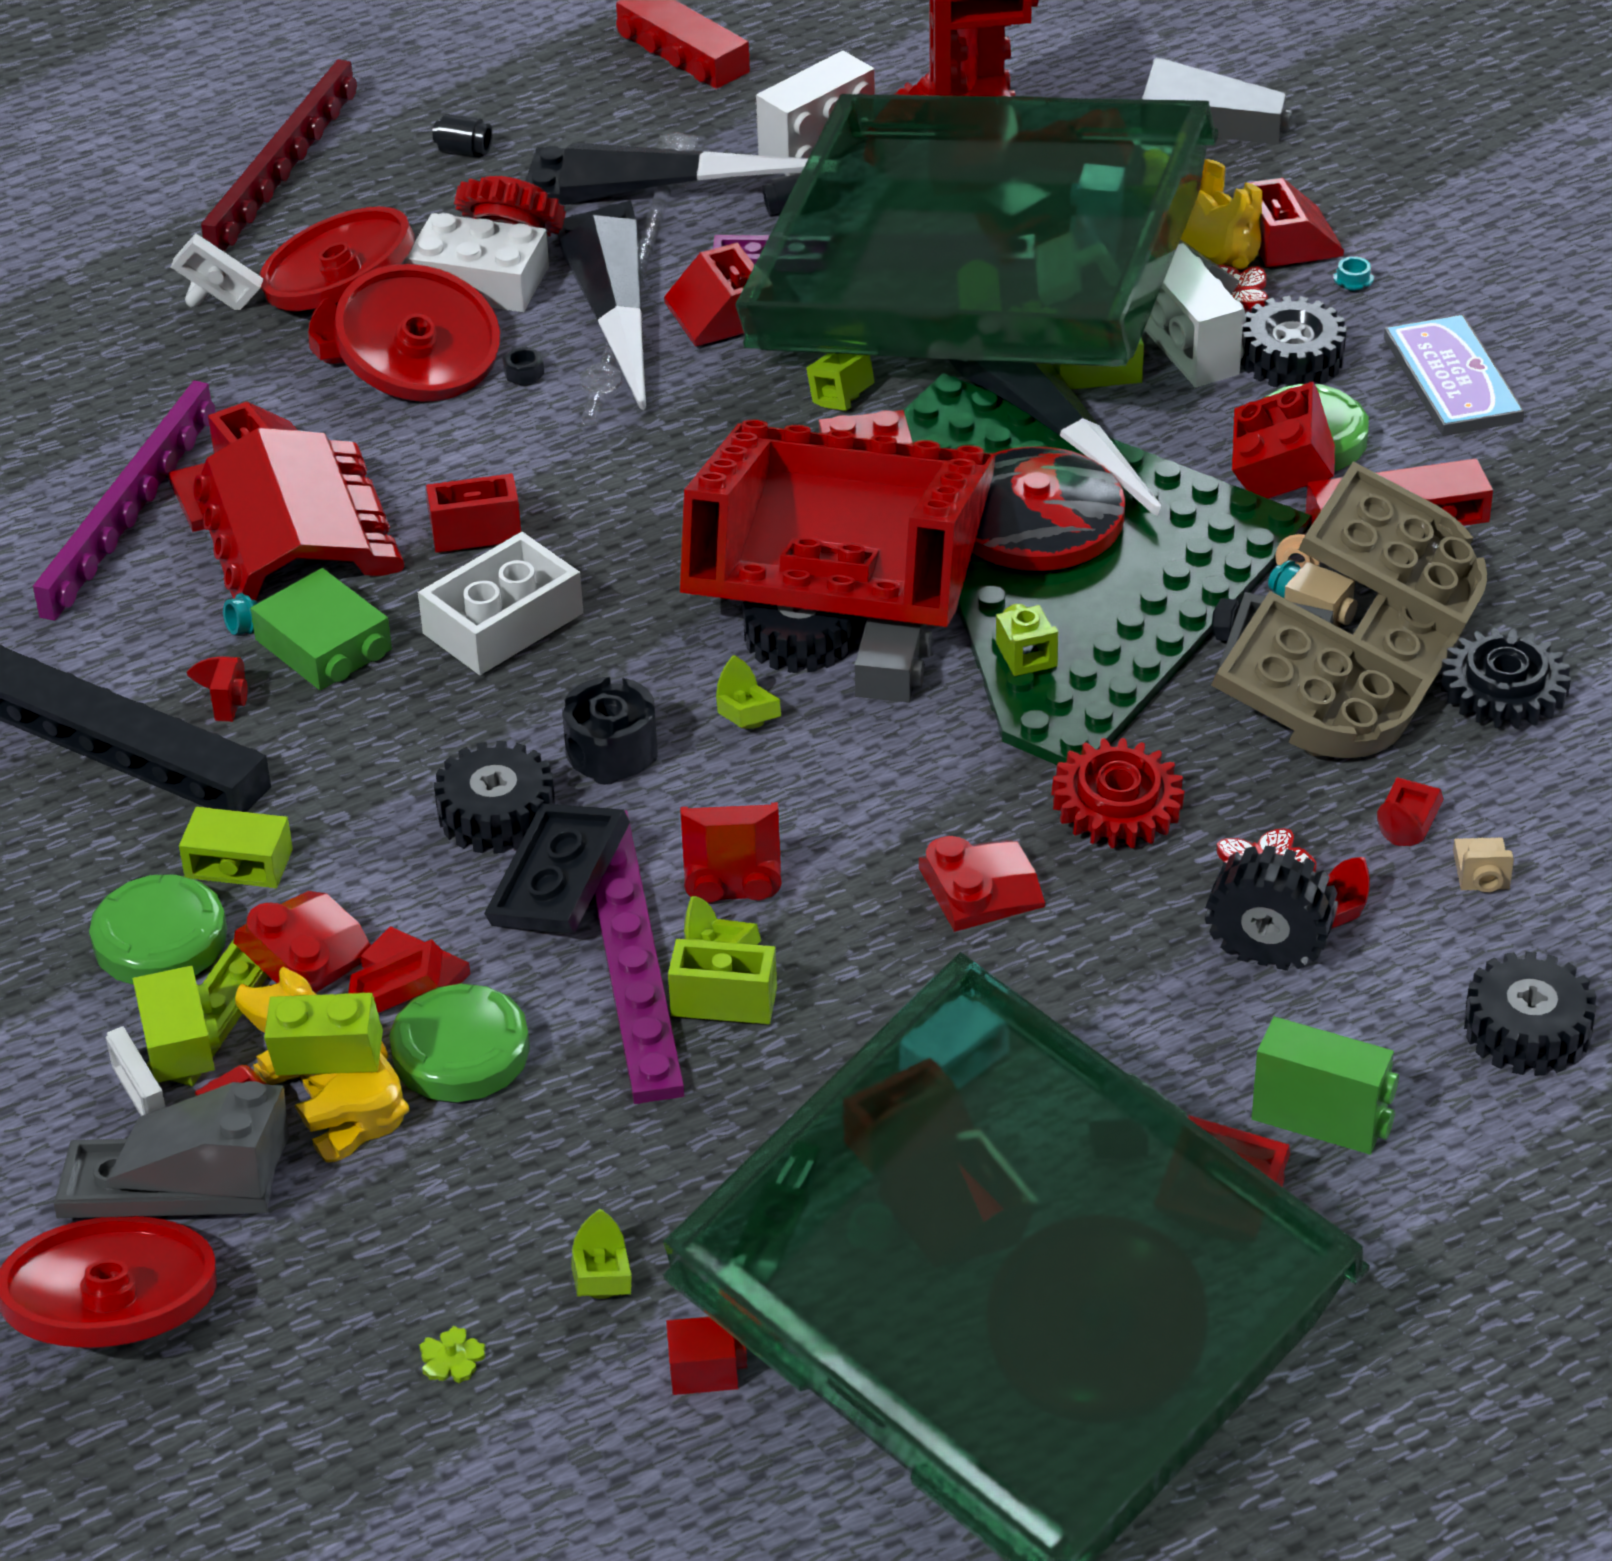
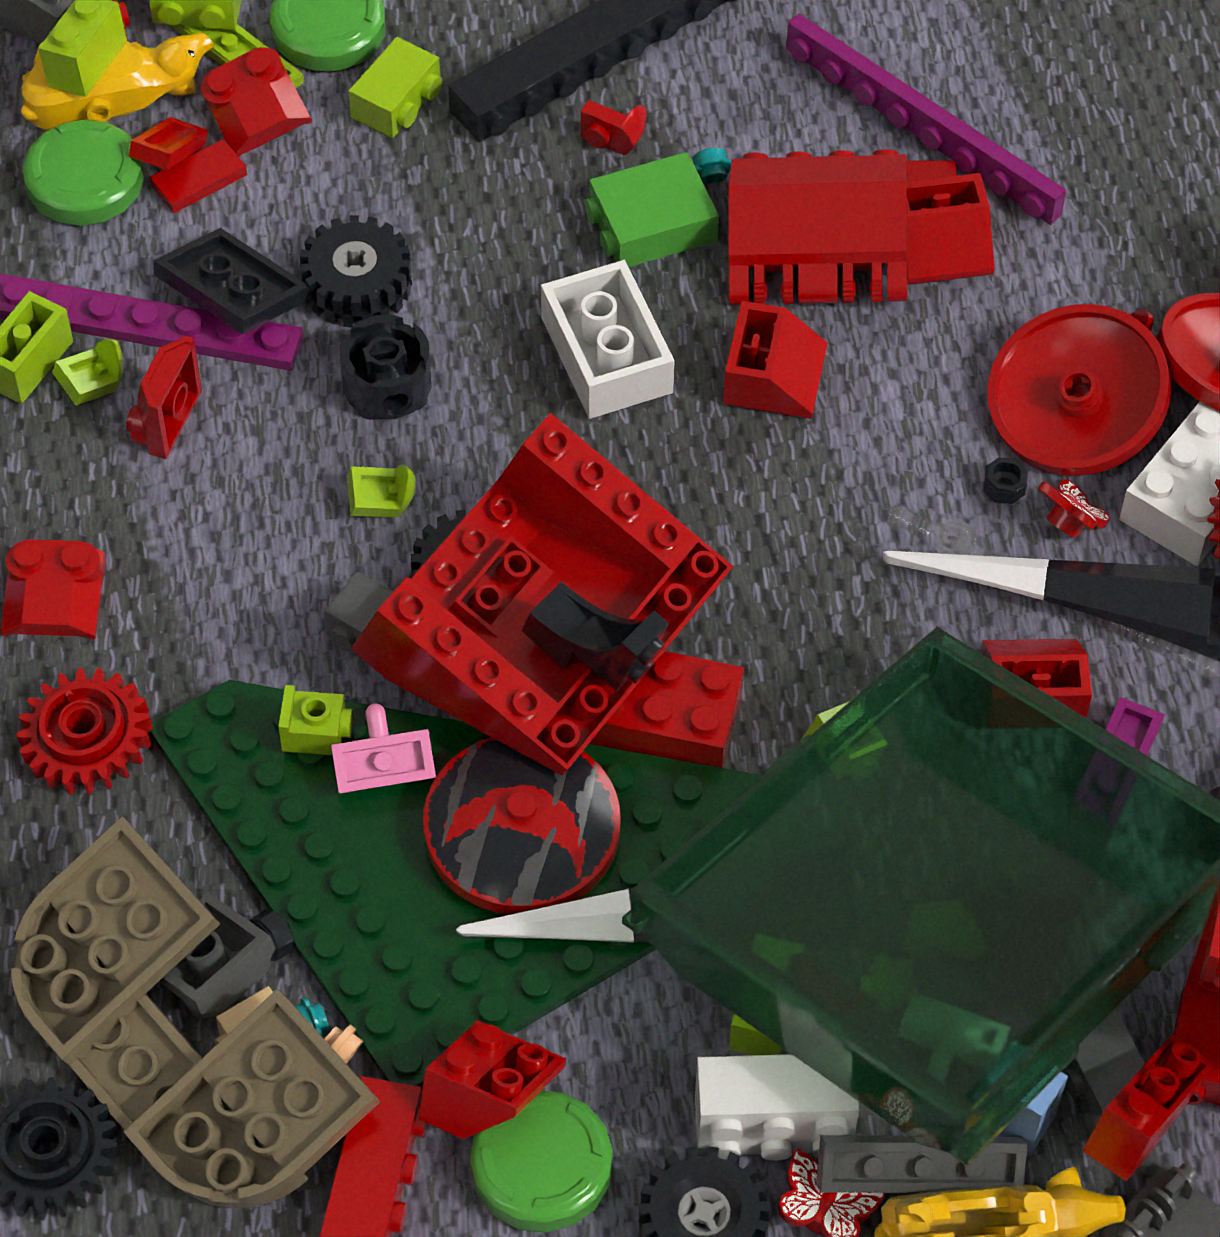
camera: 110 degrees right, 15 degrees up
(541, 321) = (1072, 508): none -> red animal
(881, 431) = (610, 645): none -> black arch
(1034, 586) = (383, 757): none -> bright pink plate

